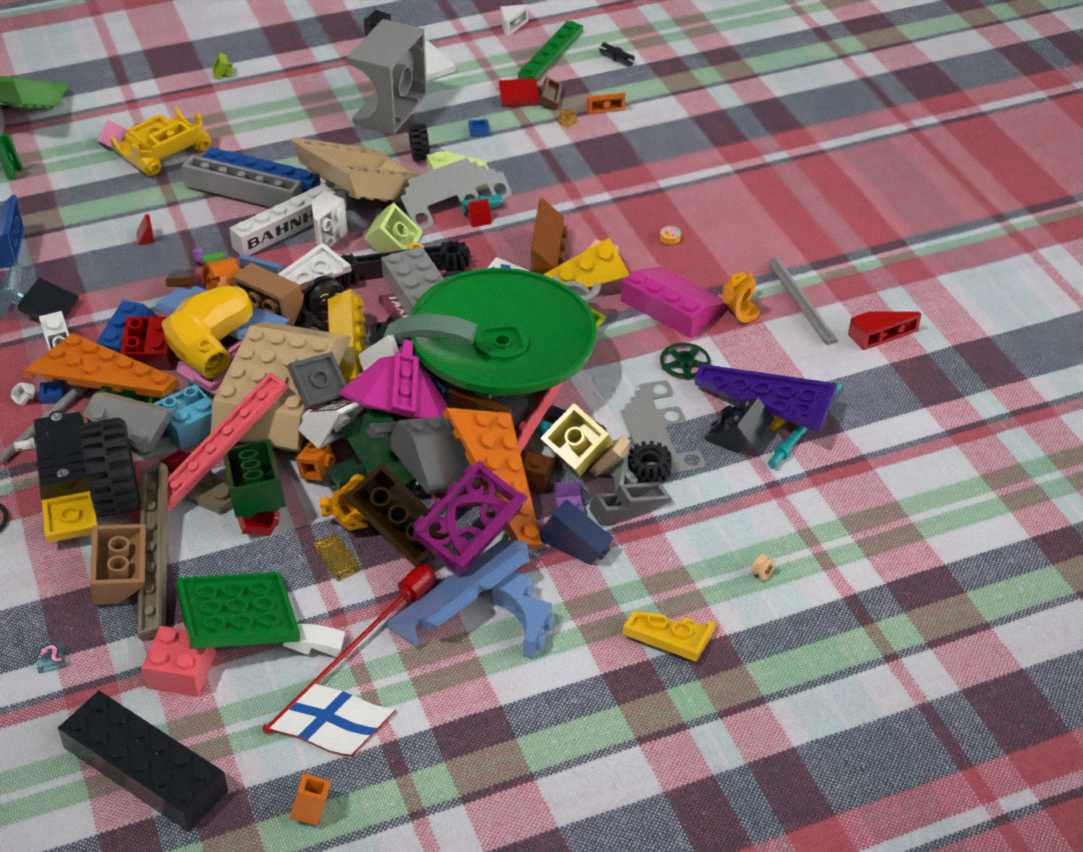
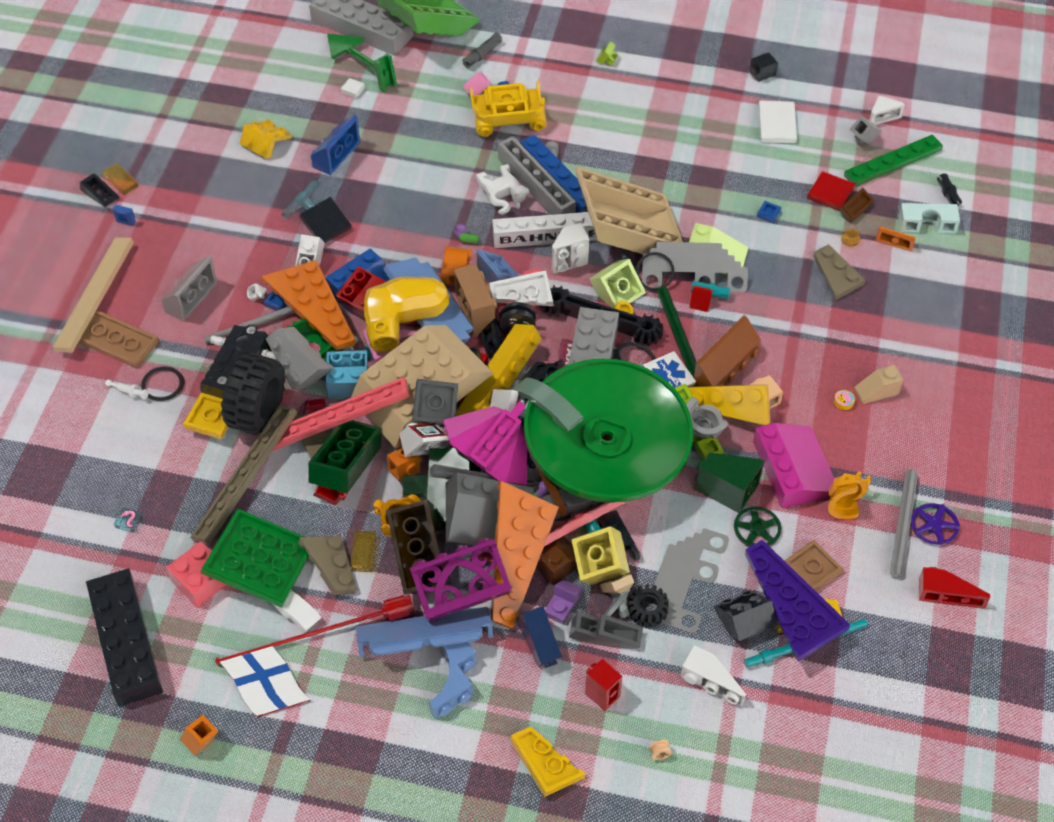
camera: 35 degrees right, 10 degrees up
(90, 111) = (478, 53): none -> dark grey pin
(117, 562) = (212, 470): medium nougat slope -> none
(145, 232) = (438, 189): red slope -> none
(180, 278) = (426, 247): reddish brown tile -> none
(211, 204) = (502, 187): none -> white animal
(308, 575) = (332, 561): none -> dark tan wing
(396, 65) = (721, 130): light grey piece -> none
(419, 141) = (702, 205): black tyre -> none
(429, 193) = (660, 254): none -> black piece
(473, 242) = (677, 329): none -> dark green axle
(510, 36) = (865, 130): none -> light grey brick
(579, 147) = (838, 273): none -> dark tan wing
(630, 72) = (943, 216): none -> light aqua arch
(632, 330) = (729, 479): none -> dark green slope
(671, 538) = (603, 684): none -> red brick
(691, 209) = (879, 385): none -> tan slope
(752, 486) = (708, 672): none -> white slope
(760, 360) = (814, 565): none -> medium nougat tile
(826, 289) = (935, 524): none -> dark purple wheel

